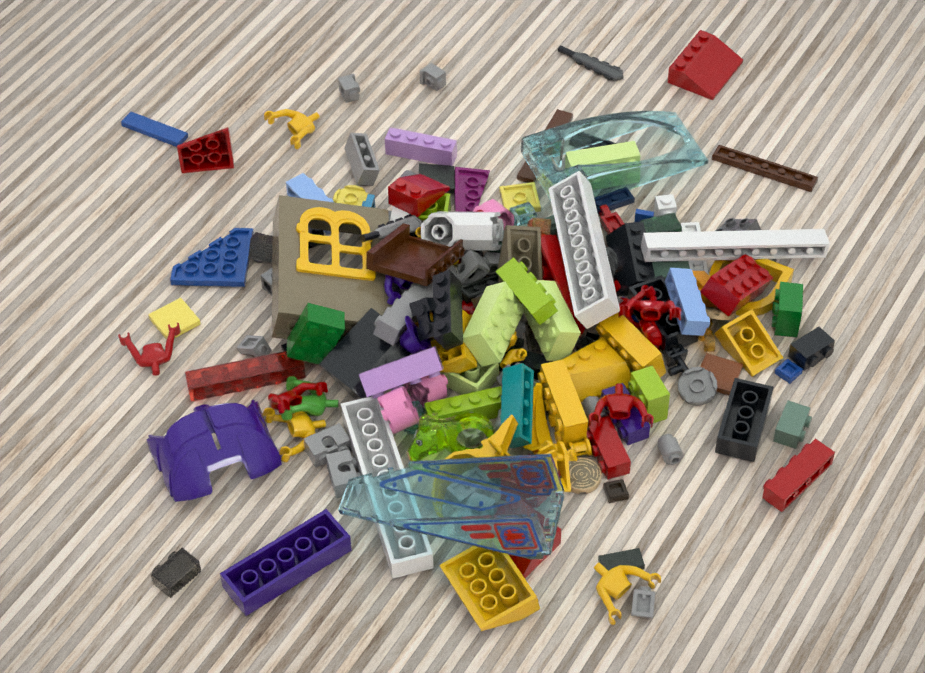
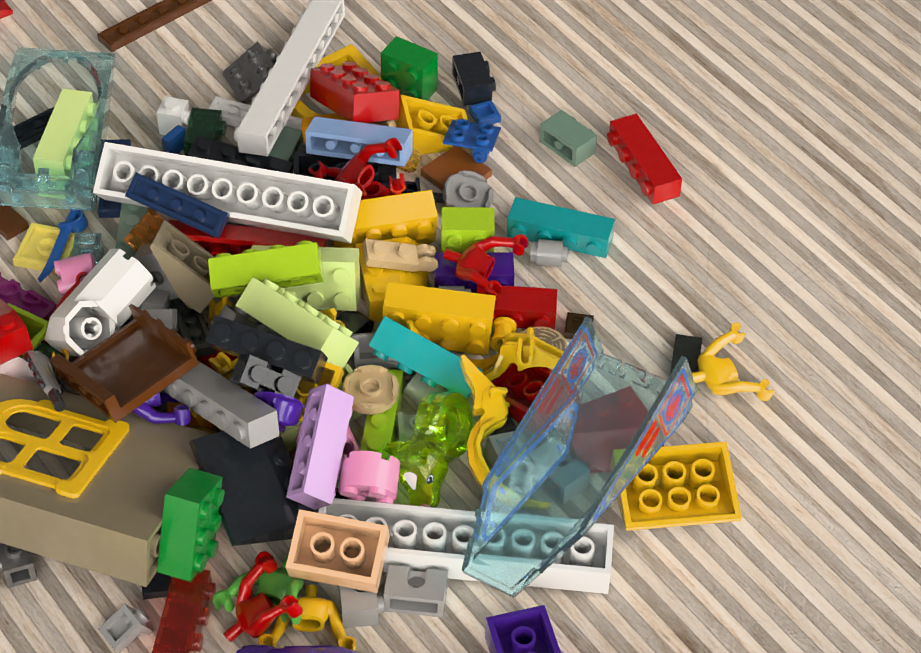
camera: 70 degrees left, 0 degrees up
(332, 413) = (338, 551): none -> light nougat brick
(475, 387) = (372, 389): none -> tan tile
(541, 199) = (74, 223): none -> blue sword
(556, 228) = (177, 205): none -> dark blue tile
(599, 361) = (399, 256): none -> tan hinge
(643, 602) = (755, 357): light grey bracket -> none
(698, 448) = (577, 229): none -> teal brick
(744, 419) = (544, 169): black brick -> none
(749, 366) = (474, 136): none -> blue hinge

